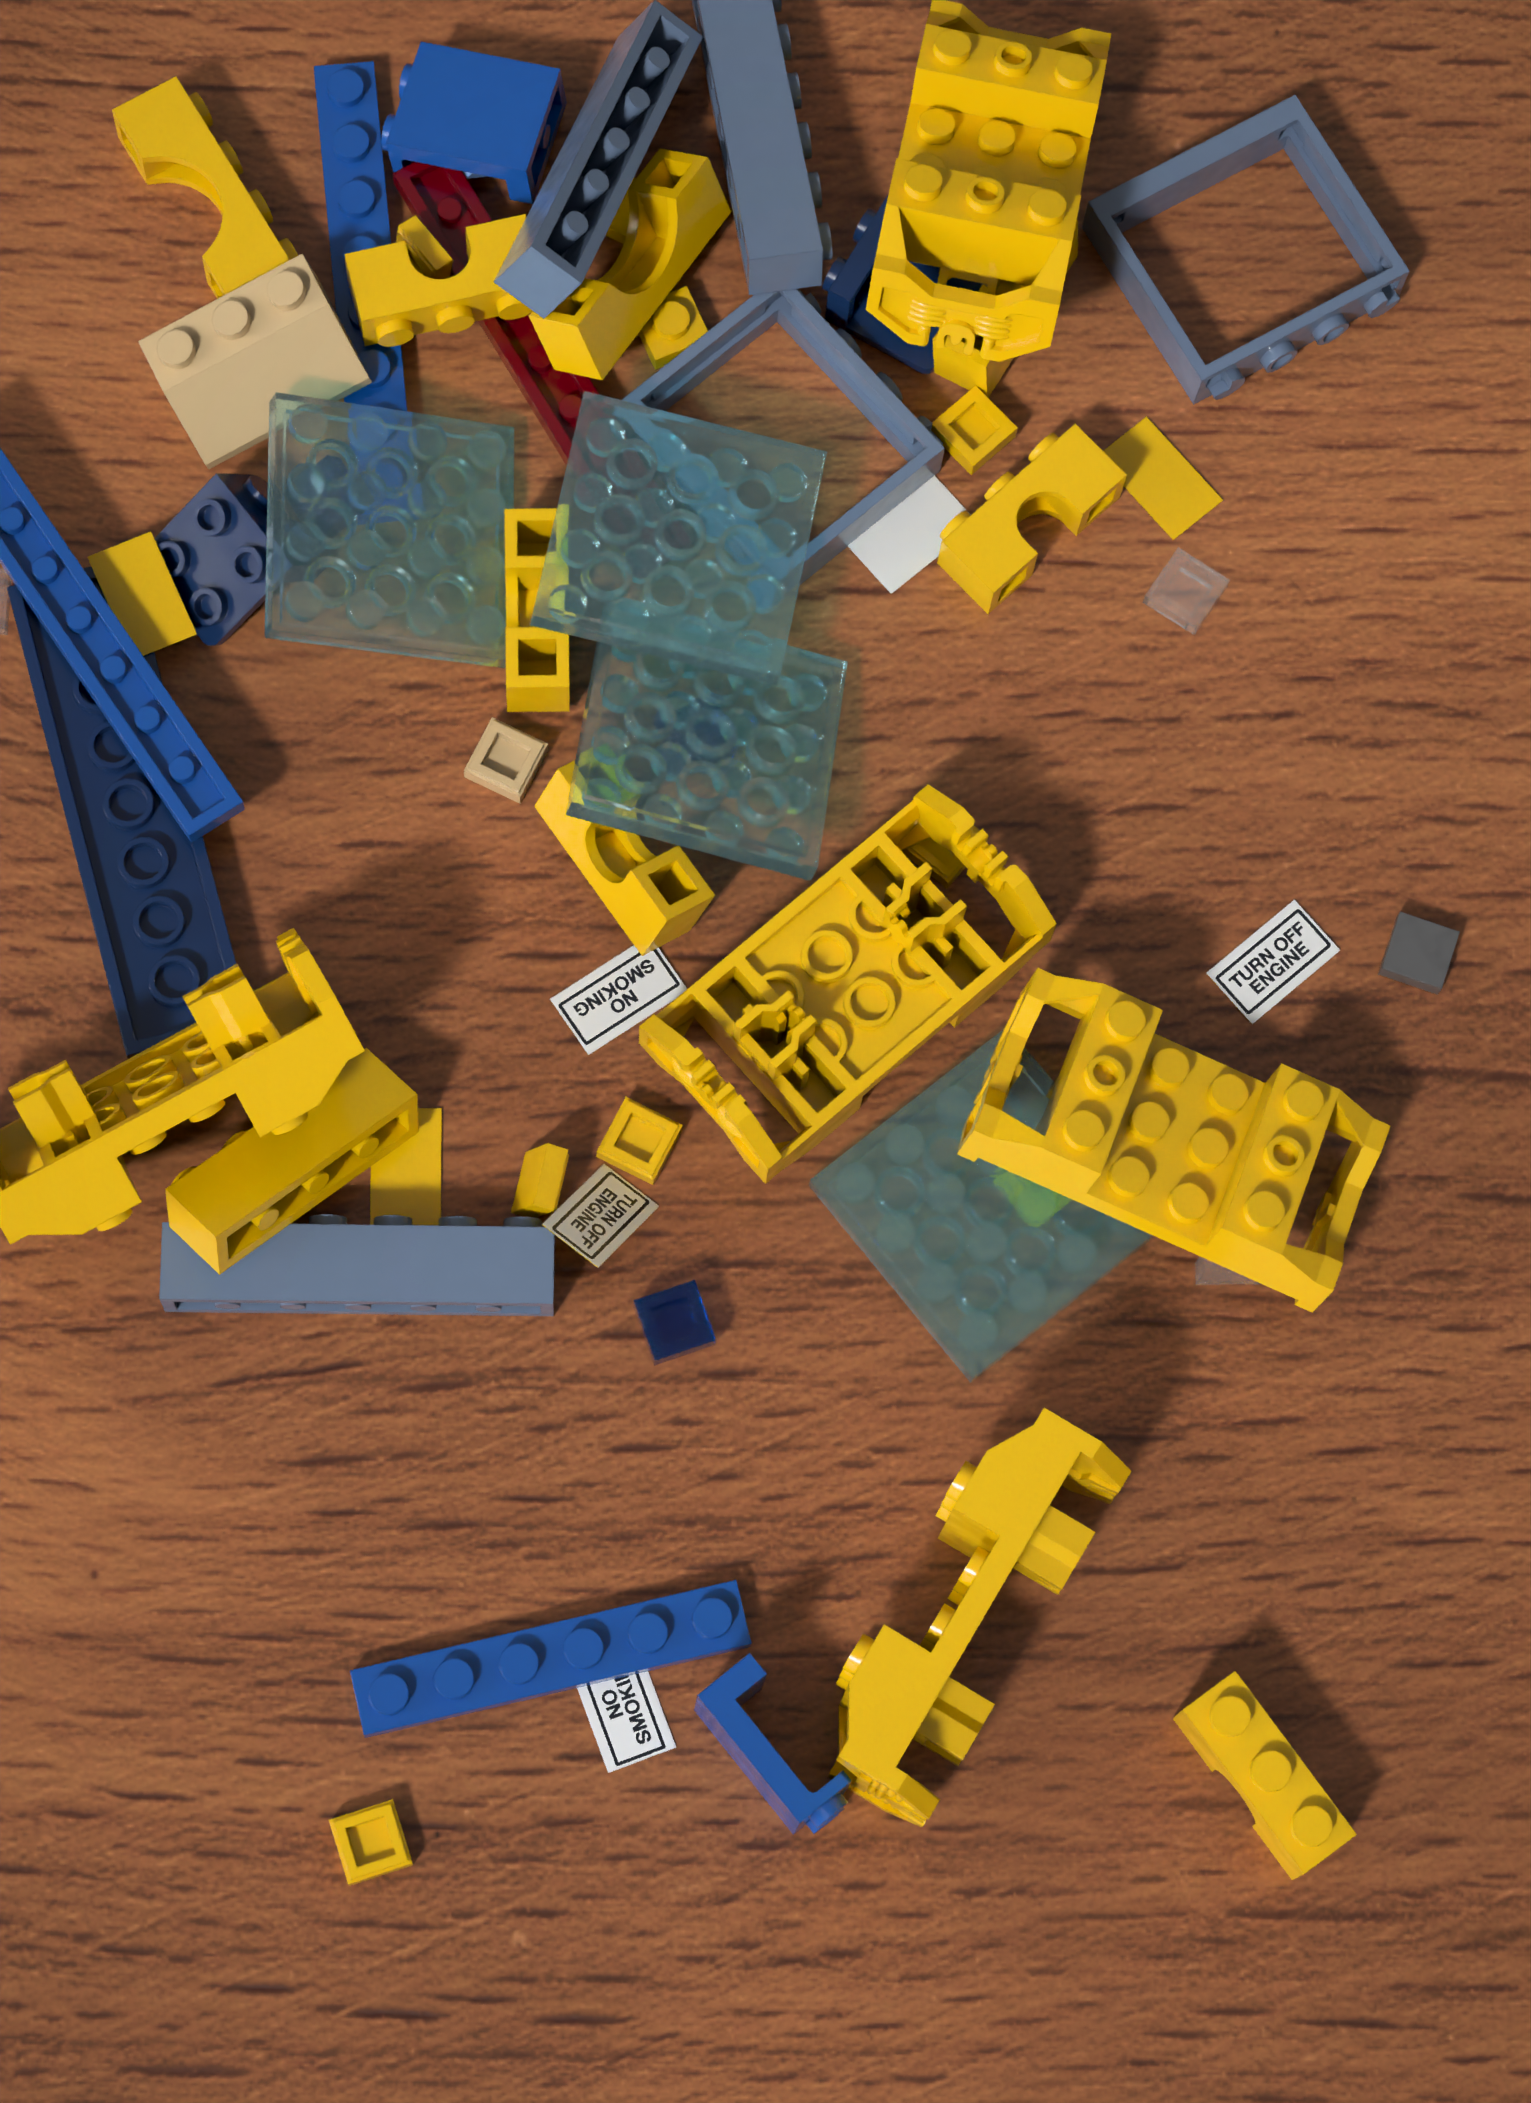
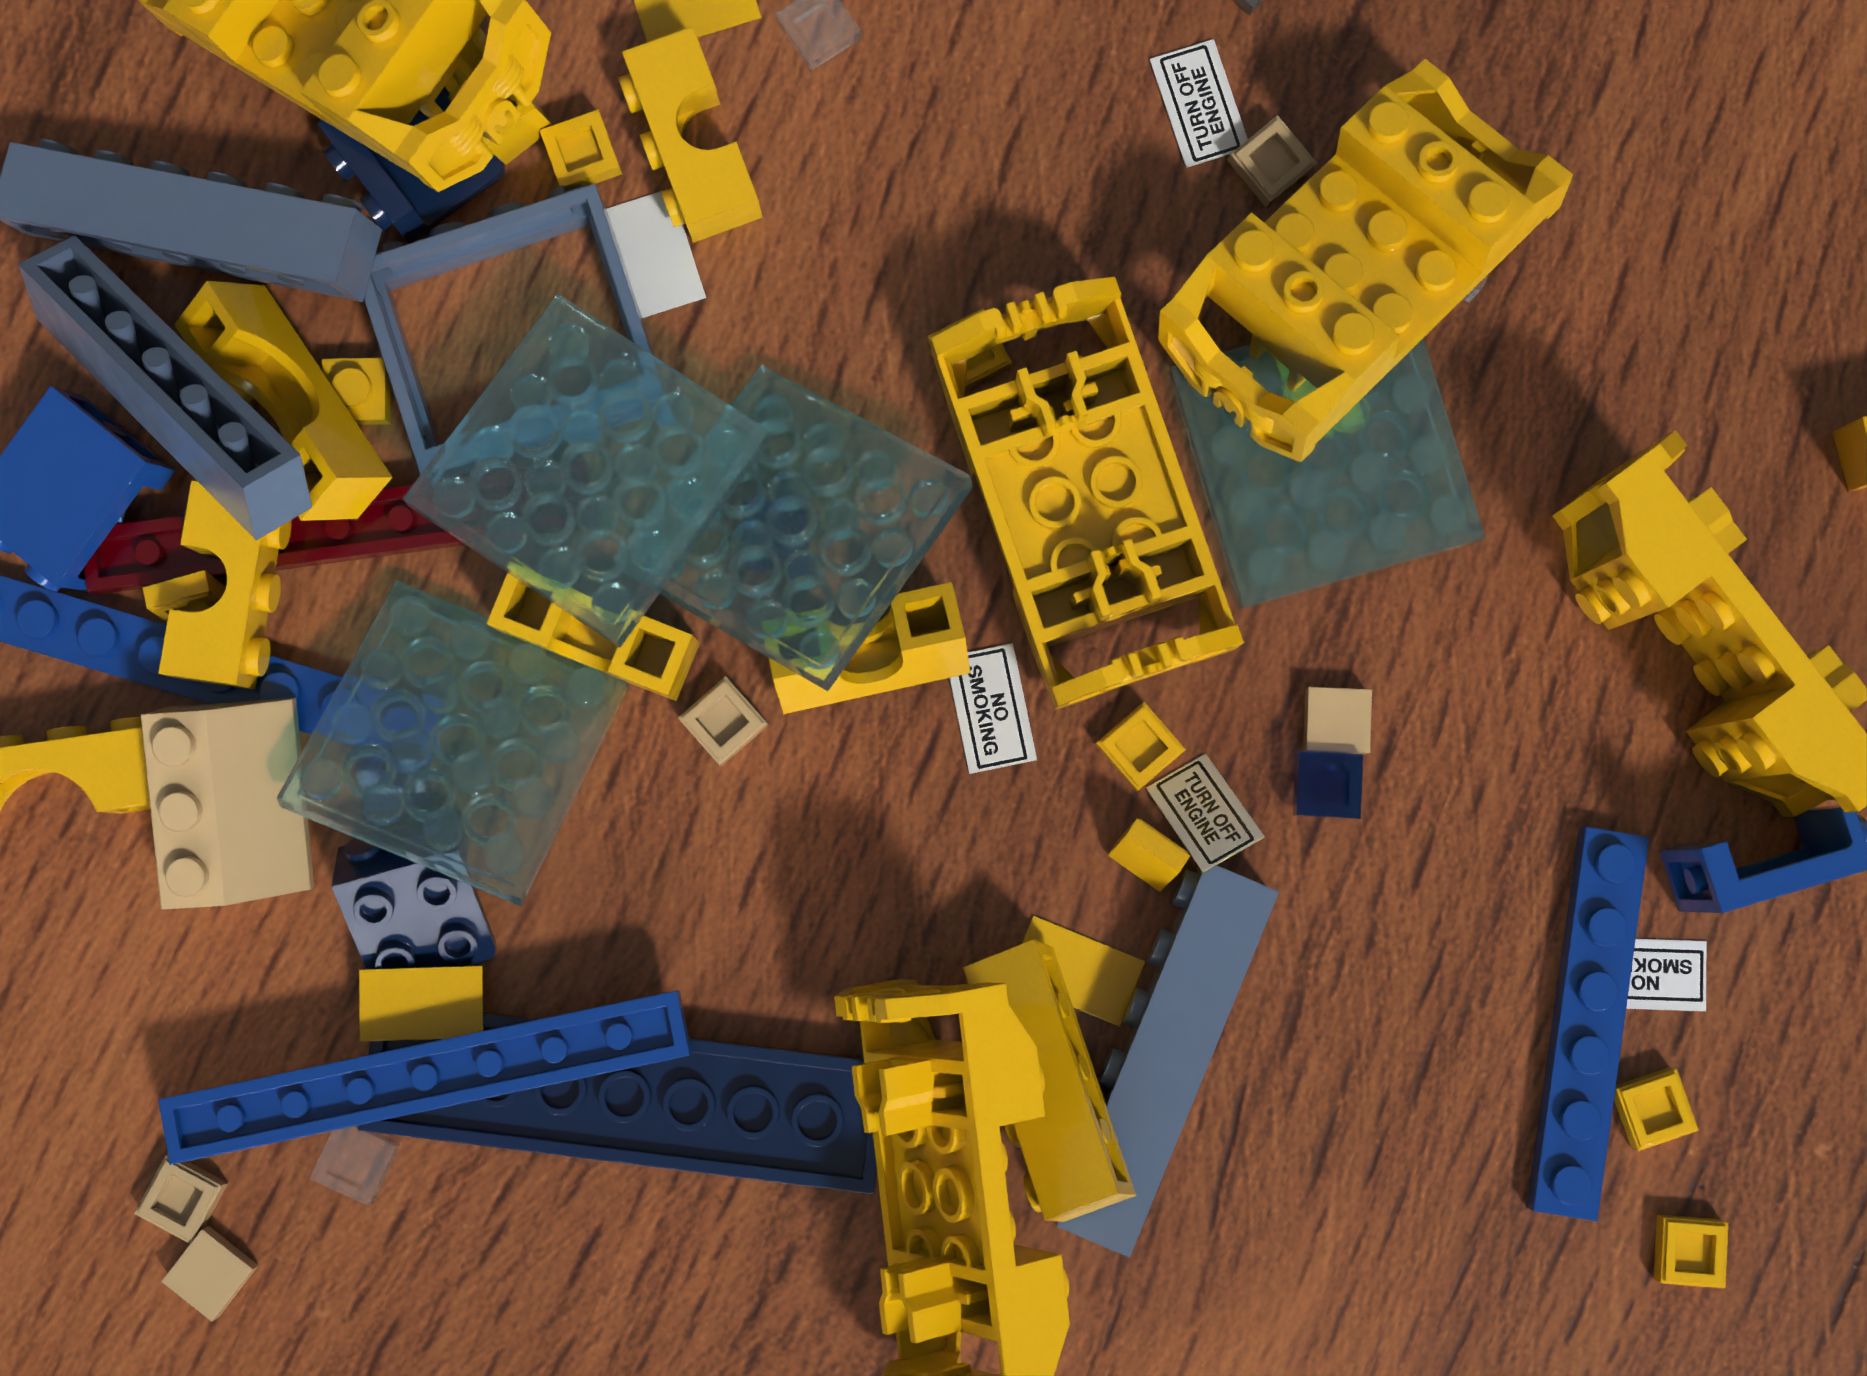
camera: 60 degrees left, 10 degrees up
(493, 1754) = (1654, 1109): none -> yellow tile
(740, 1311) = (1337, 720): none -> tan tile
(1247, 1042) = (1271, 161): none -> tan tile

